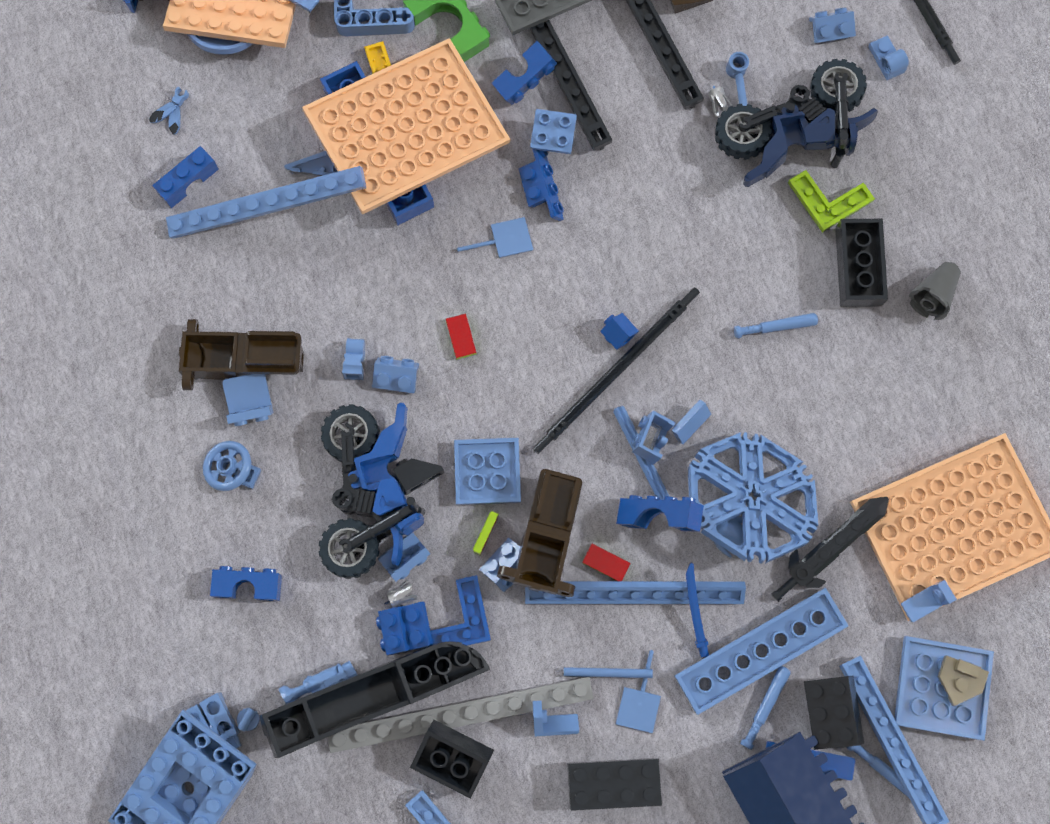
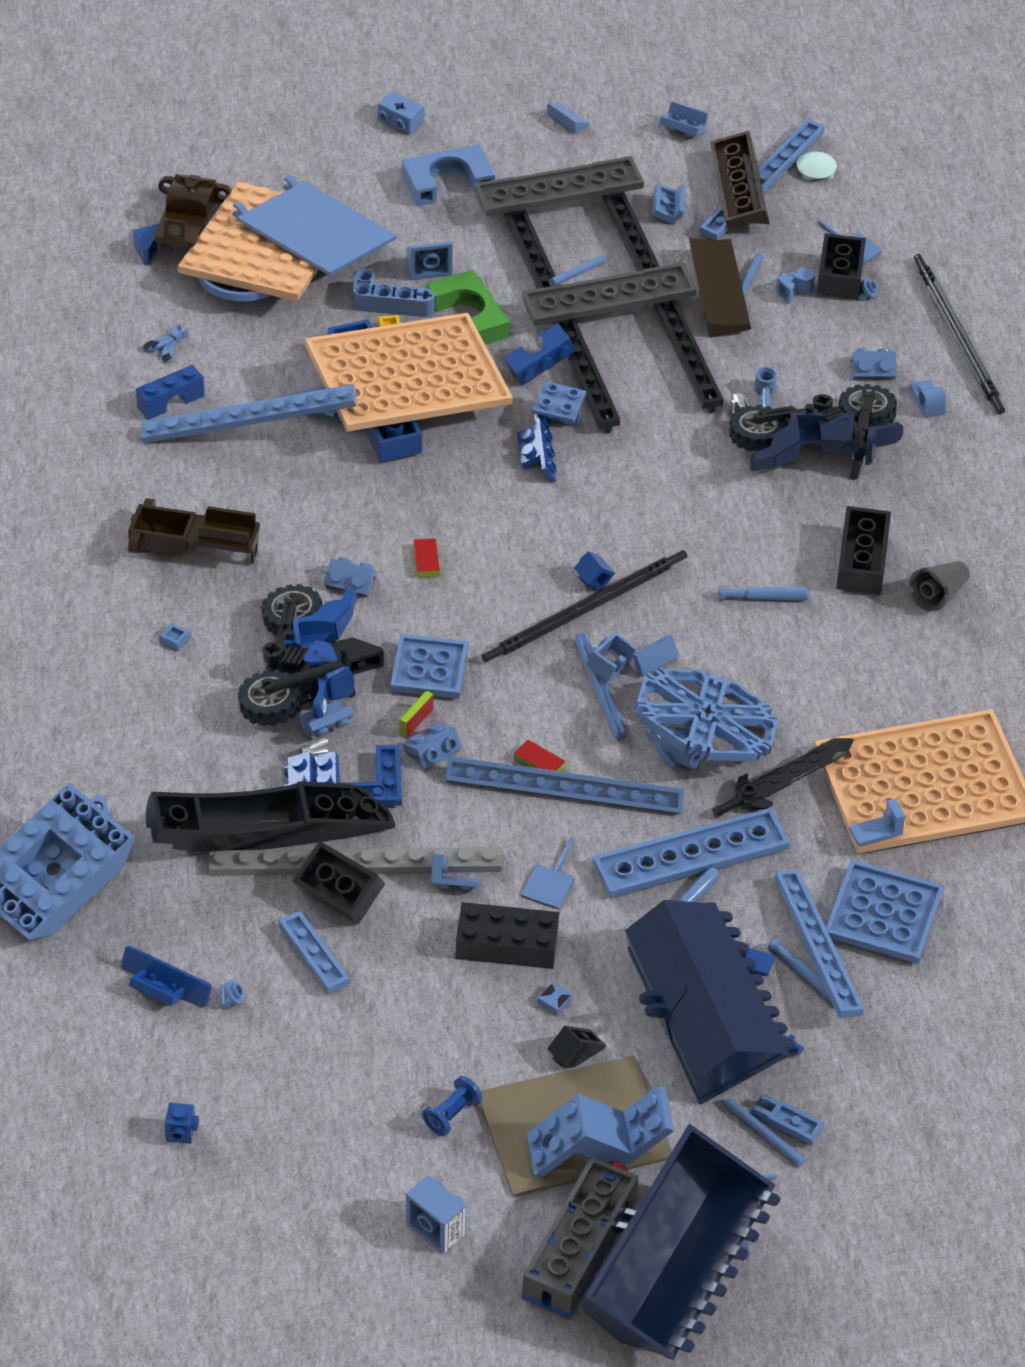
camera: 10 degrees right, 30 degrees down
(214, 455) = (156, 622): medium blue plate -> none
(226, 582) = (137, 713): blue arch -> none
(247, 398) = (191, 571): medium blue bracket -> none
(248, 719) = (132, 826): medium blue plate -> none
(354, 356) = (308, 559): medium blue leg -> none
(509, 236) = (492, 488): medium blue piece -> none
(547, 536) = (478, 713): dark brown piece -> none
(608, 672) = (523, 847): medium blue bar -> none
(680, 514) = (583, 713): blue arch -> none
(701, 642) = (627, 836): blue sword -> none
(823, 212) = (831, 507): lime plate -> none
(834, 712) = (758, 904): black brick -> none
(961, 679) = (904, 898): dark tan plate -> none

